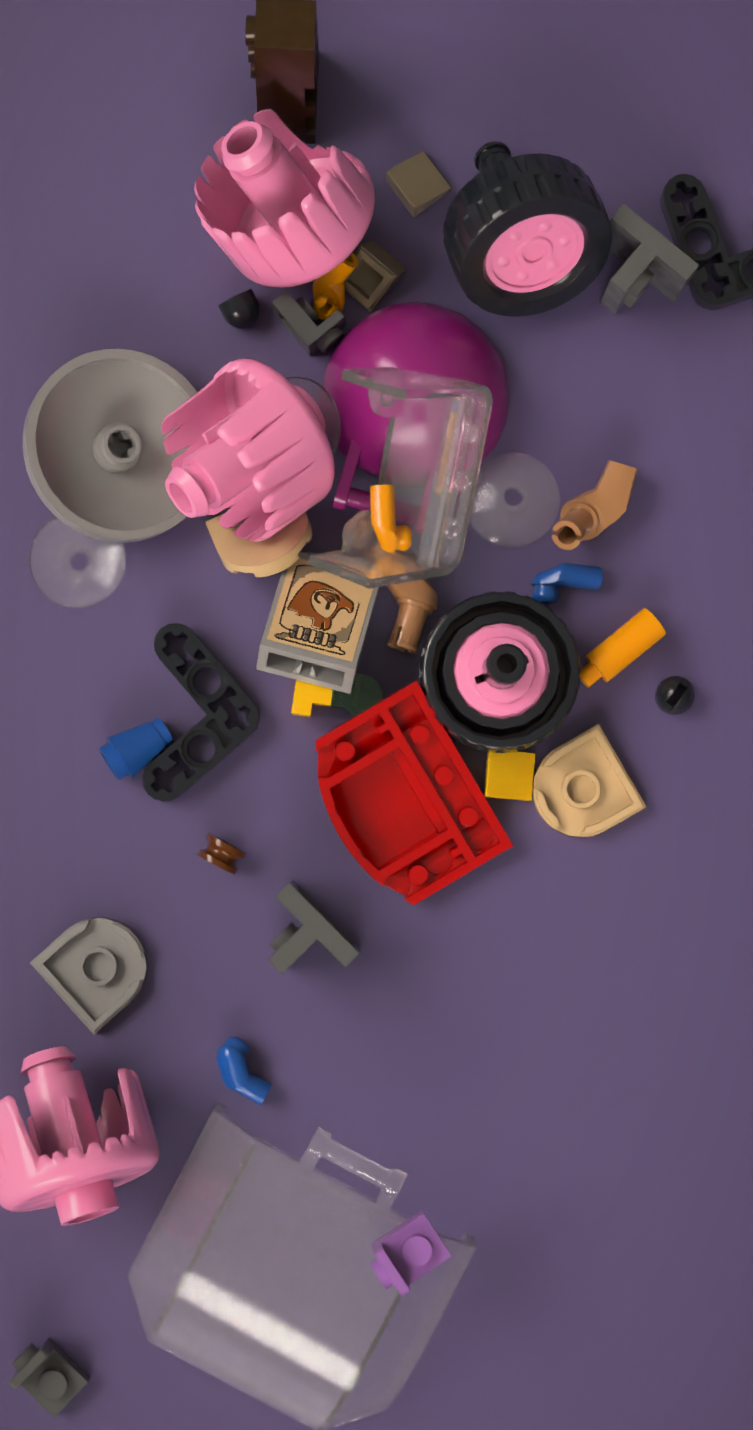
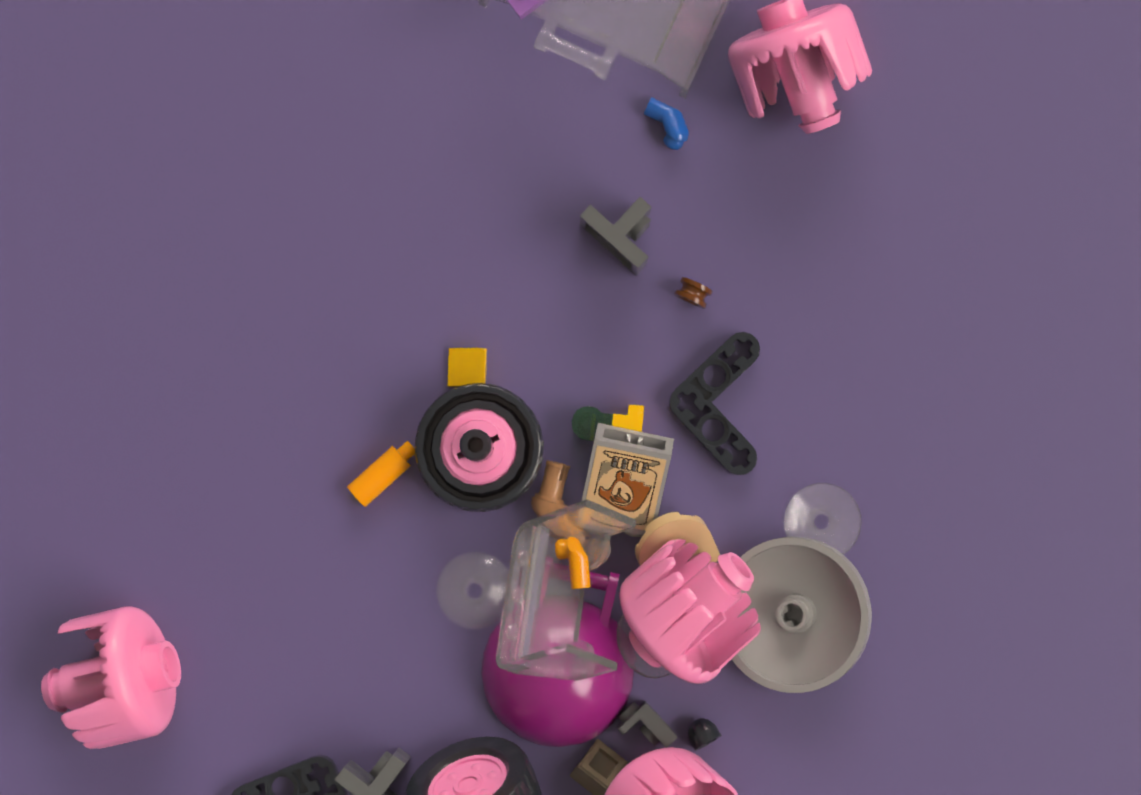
camera: 175 degrees left, 0 degrees up
(95, 969) = (788, 197): light grey tile -> none
(135, 748) = (767, 373): blue cone -> none
(330, 288) = (630, 747): light orange arm -> none
(406, 797) = (549, 344): red slope -> none
(565, 575) = (429, 530): blue arm -> none
(584, 787) = (406, 361): tan tile -> none
(597, 508) = (408, 584): medium nougat arm -> none
(667, 688) = (343, 444): black hinge -> none

